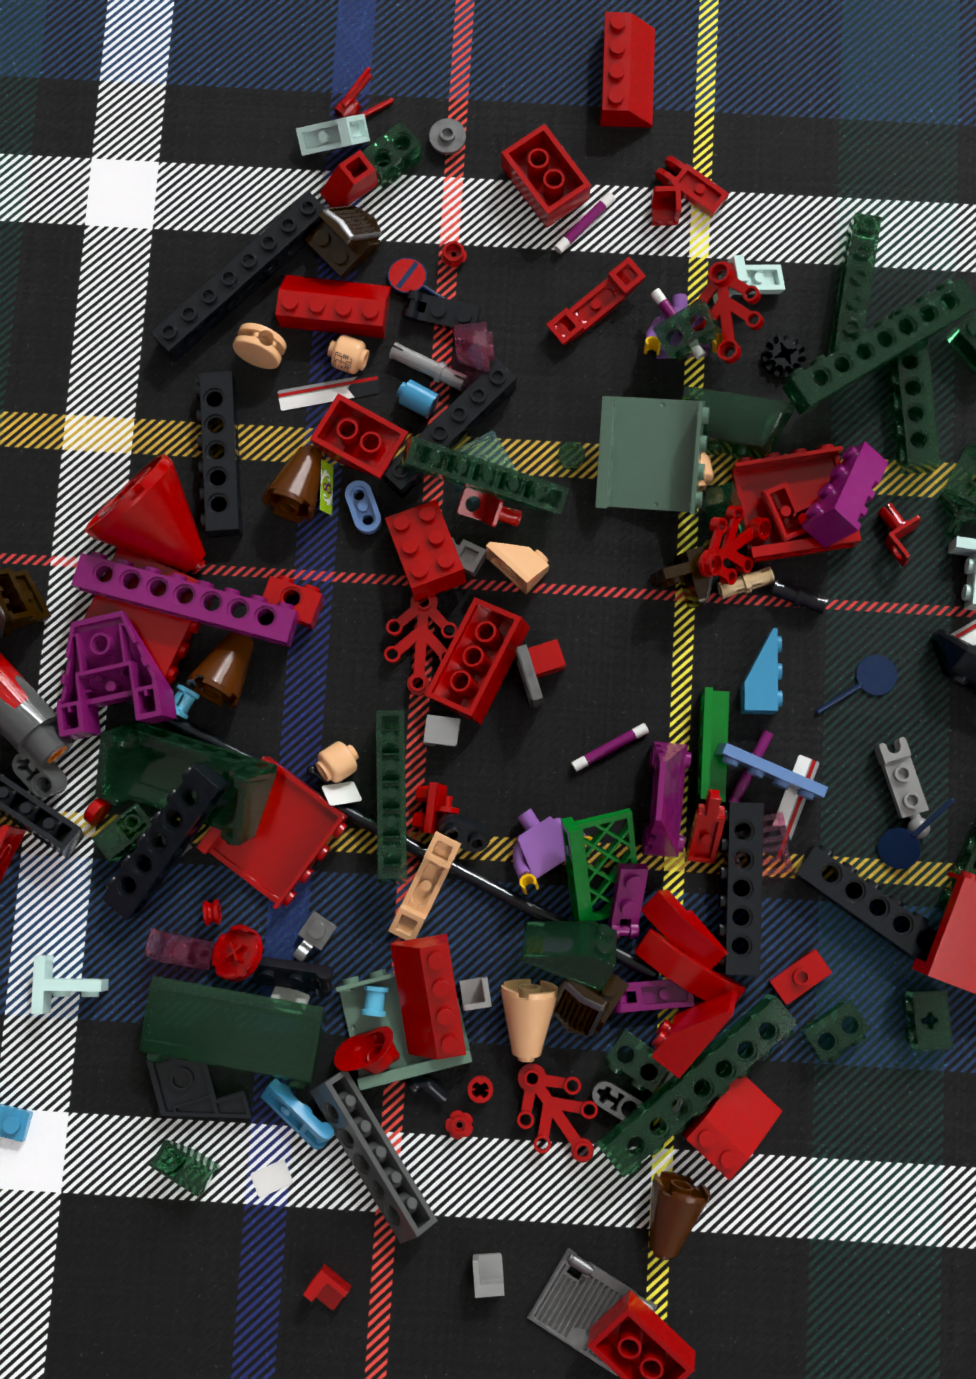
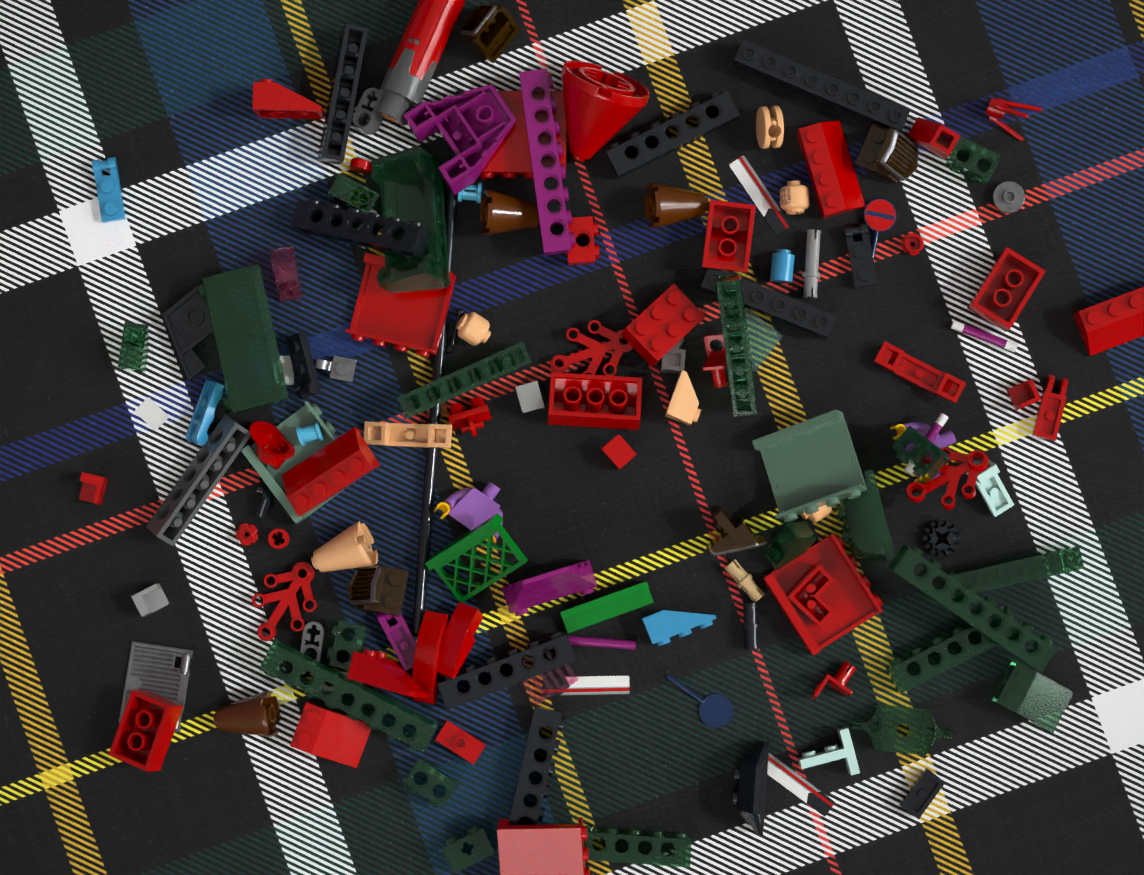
camera: 60 degrees right, 5 degrees up
(45, 983) = (222, 198): light aqua bracket -> none
(212, 912) = (323, 285): red bush -> none
(237, 953) = (301, 317): red tile -> none
(326, 489) = (681, 227): lime sticker -> none
(333, 134) = (970, 112): light aqua bracket -> none
(341, 793) = (451, 342): white sticker -> none
(363, 508) = (677, 262): medium blue plate -> none
(465, 832) = (461, 449): black plate -> none
(474, 345) = (842, 293): clear pink slope -> none
(475, 993) = (346, 505): light grey panel -> none
(528, 676) = (598, 444): flat silver tile -> none
(571, 455) = (789, 405): clear green tile -> none
(572, 950) = (406, 561): clear green slope -> none
(610, 747) = (571, 528): magenta bar -> none
(628, 899) = (461, 589): magenta plate -> none
(706, 829) = (539, 627): red hinge -> none
(711, 560) = (742, 545): red plant -> none
(760, 767) = (603, 647): medium blue plate -> none
(845, 495) = (843, 628): magenta wedge -> none
(901, 847) = (590, 778): dark blue piece -> none
(903, 783) = (636, 765): light grey plate -> none

